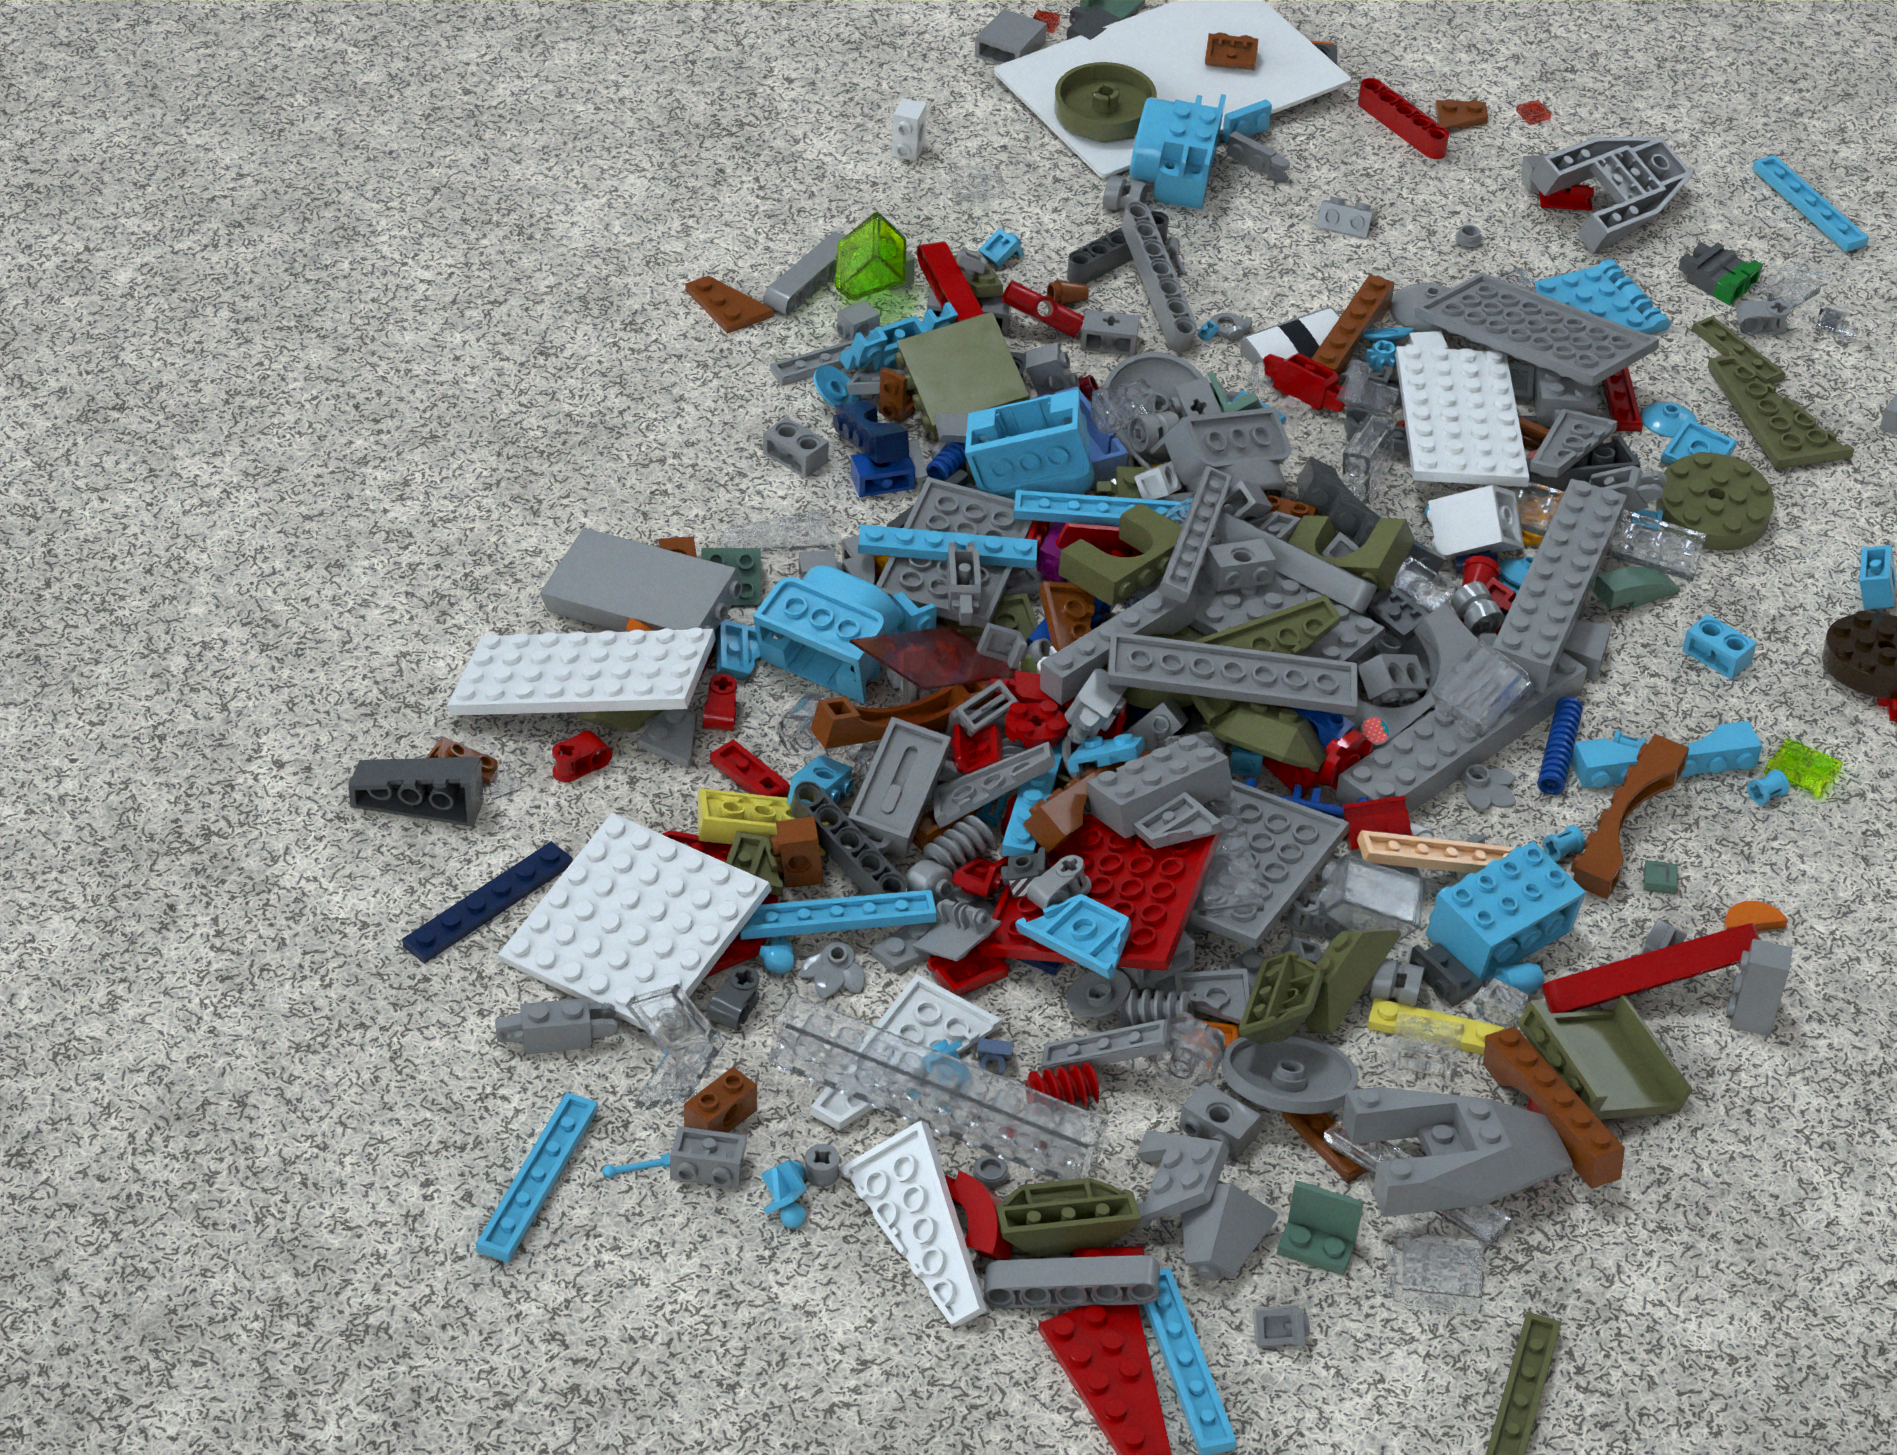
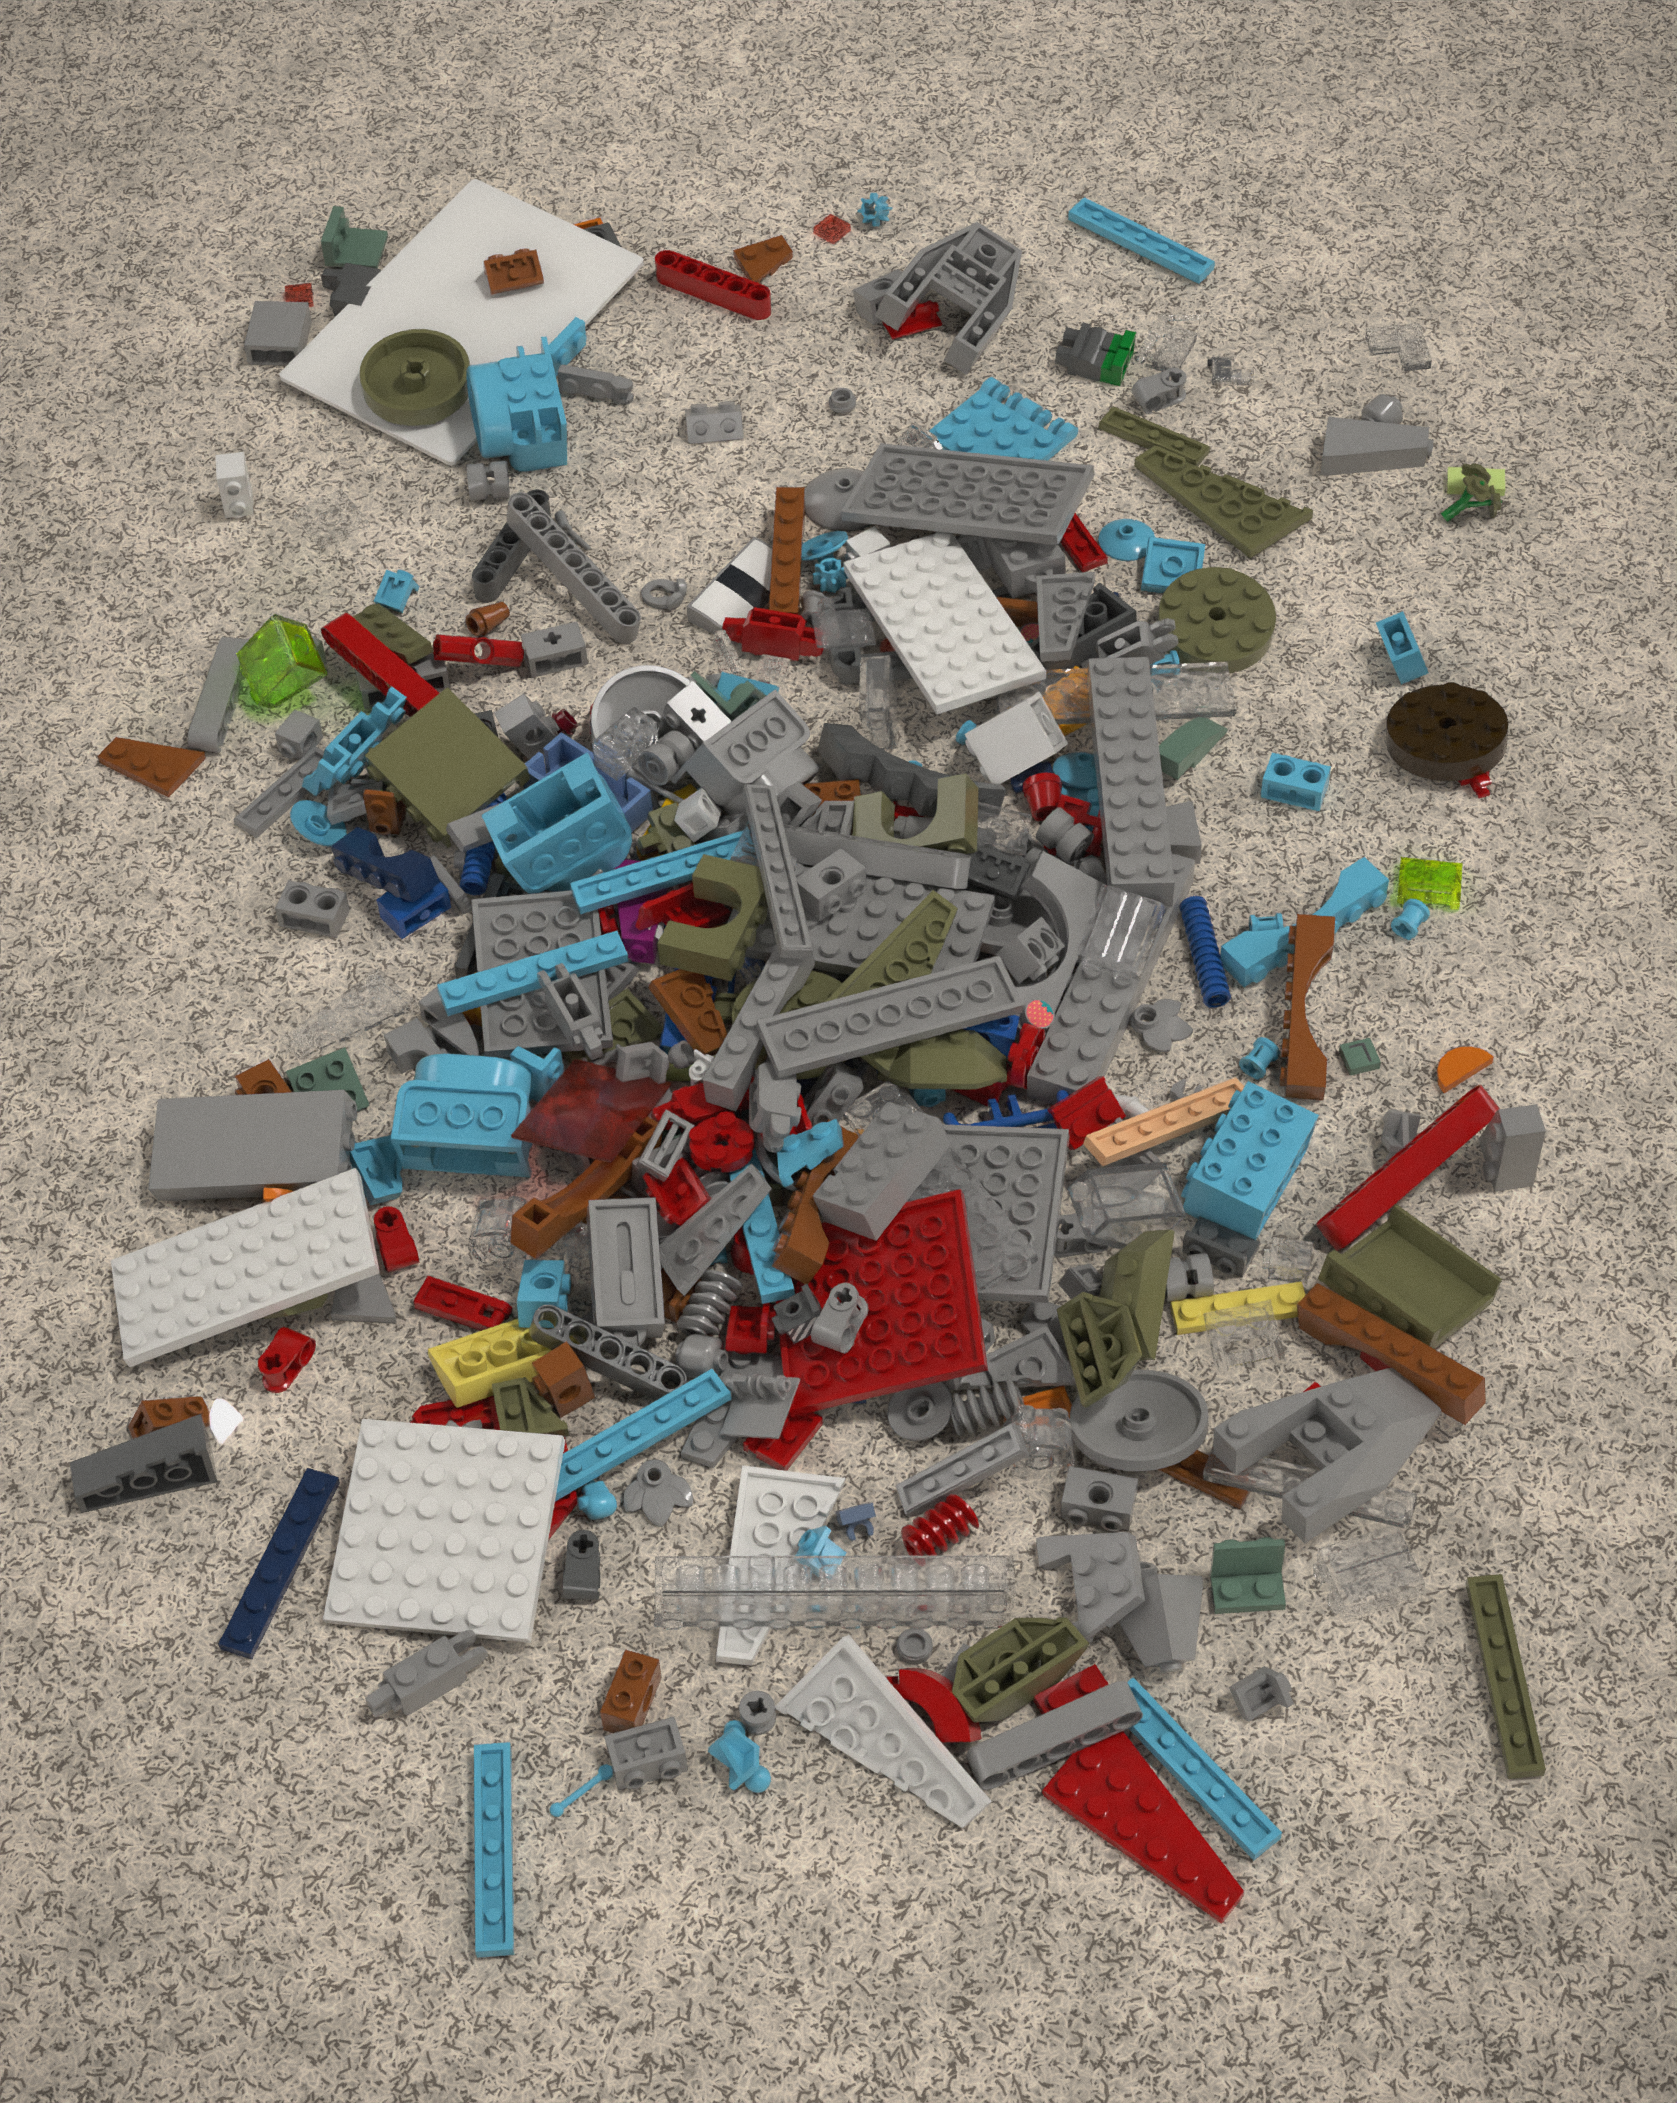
camera: 20 degrees left, 10 degrees up
(687, 1043) = (571, 1652): clear bracket -> none
(970, 261) = (385, 627): light grey plate -> none
(1081, 932) = (889, 1363): medium azure wing -> none
(1177, 822) = (921, 1206): light grey wing -> none
(1208, 330) = (647, 608): medium azure rock -> none
(1339, 547) = (910, 823): light grey tile -> none
(1522, 976) = (1290, 1223): medium azure brick -> none
(1578, 107) = (881, 208): none -> medium azure gear

